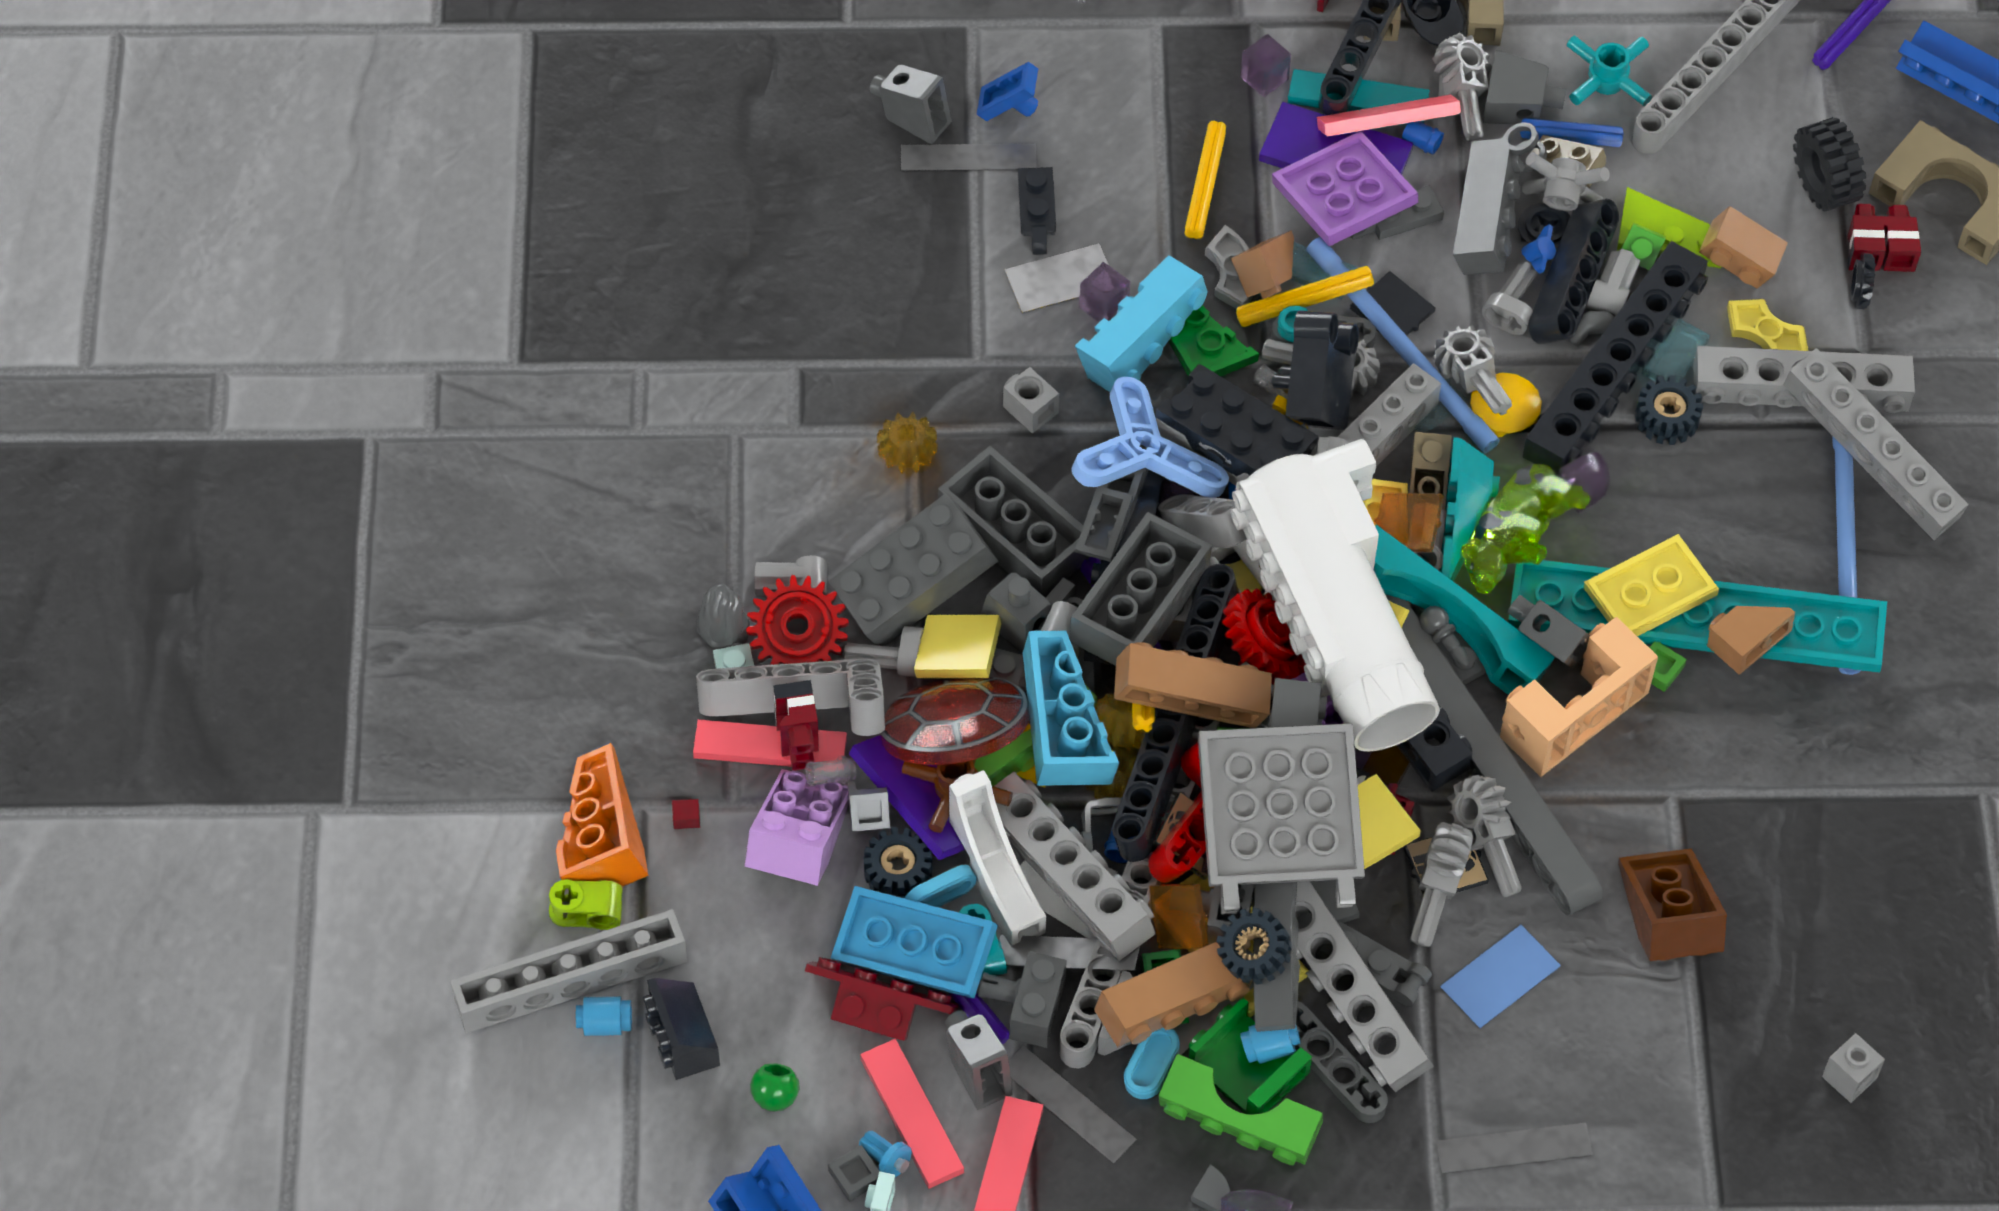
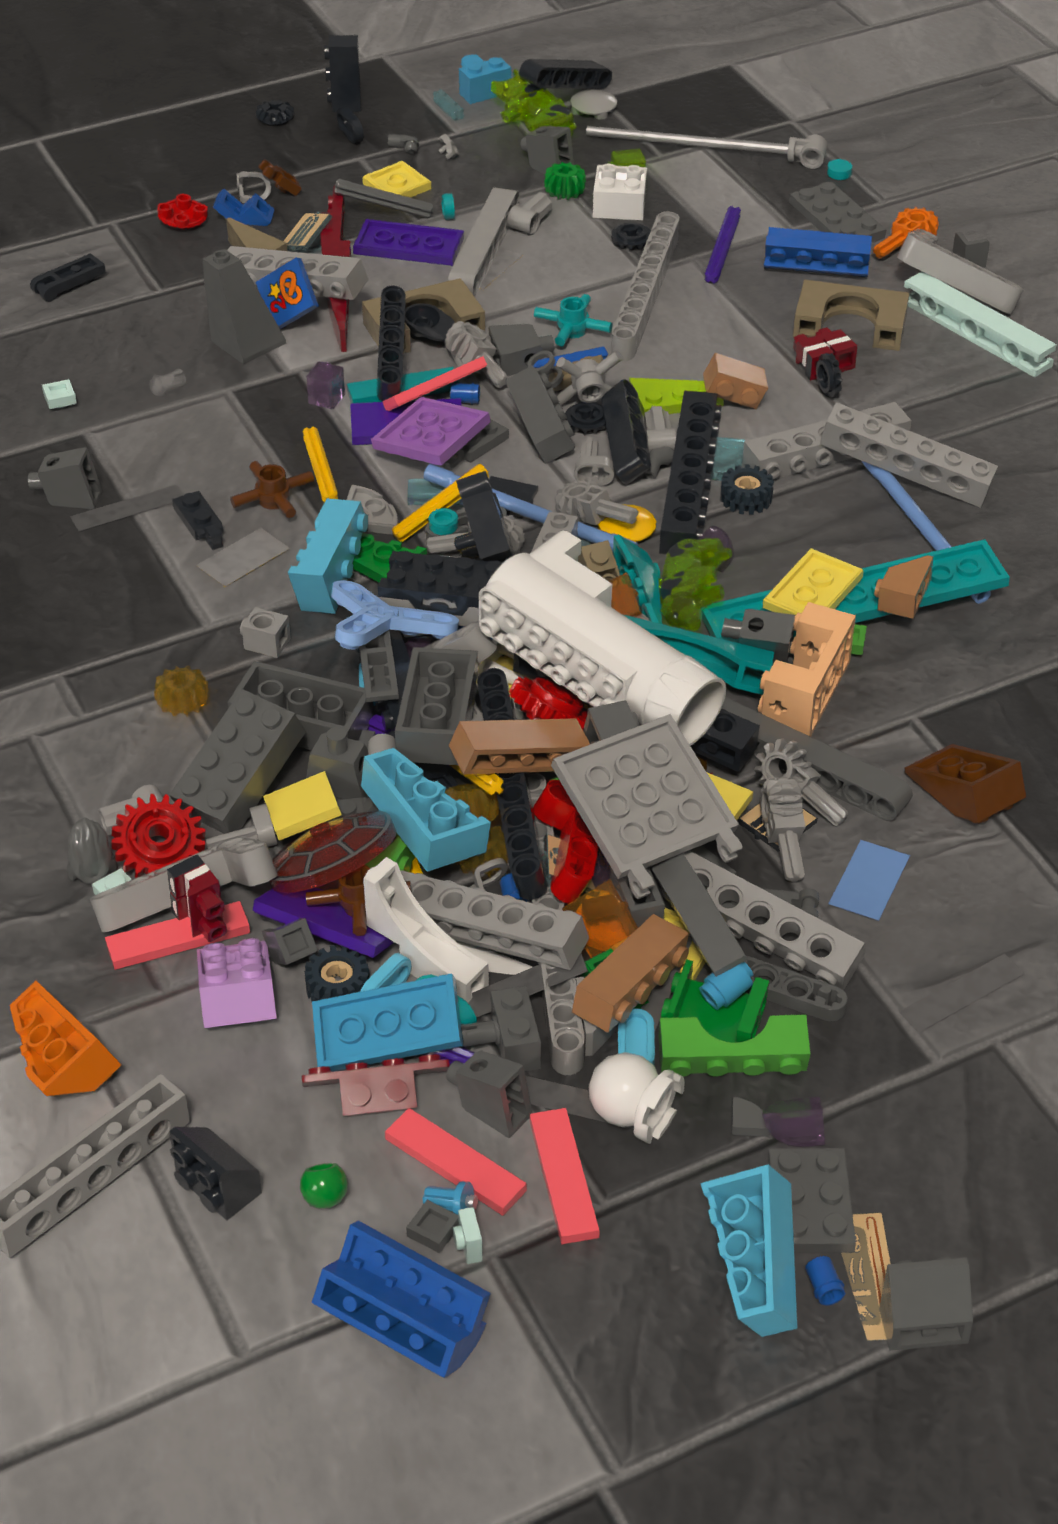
camera: 25 degrees left, 15 degrees down
(591, 904) = (74, 1107): lime piece -> none
(604, 1016) = (136, 1190): dark azure brick -> none
(686, 814) = (130, 1010): dark red piece -> none
(831, 771) = (246, 928): clear pin -> none
(1010, 91) = (141, 452): blue tile -> none
(1103, 292) = (284, 546): clear purple brick -> none
(1107, 1121) = (632, 1093): none -> white tile
(1132, 198) = (272, 488): none -> reddish brown bar
(1237, 939) = (676, 890): black bush -> none
(1266, 265) = (399, 493): medium nougat slope -> none
(1540, 250) = (594, 426): blue piece -> none
(1644, 244) = (667, 399): bright green plate -> none
(1756, 323) = (768, 423): light yellow tile -> none
(1829, 164) = (752, 325): black tyre -> none

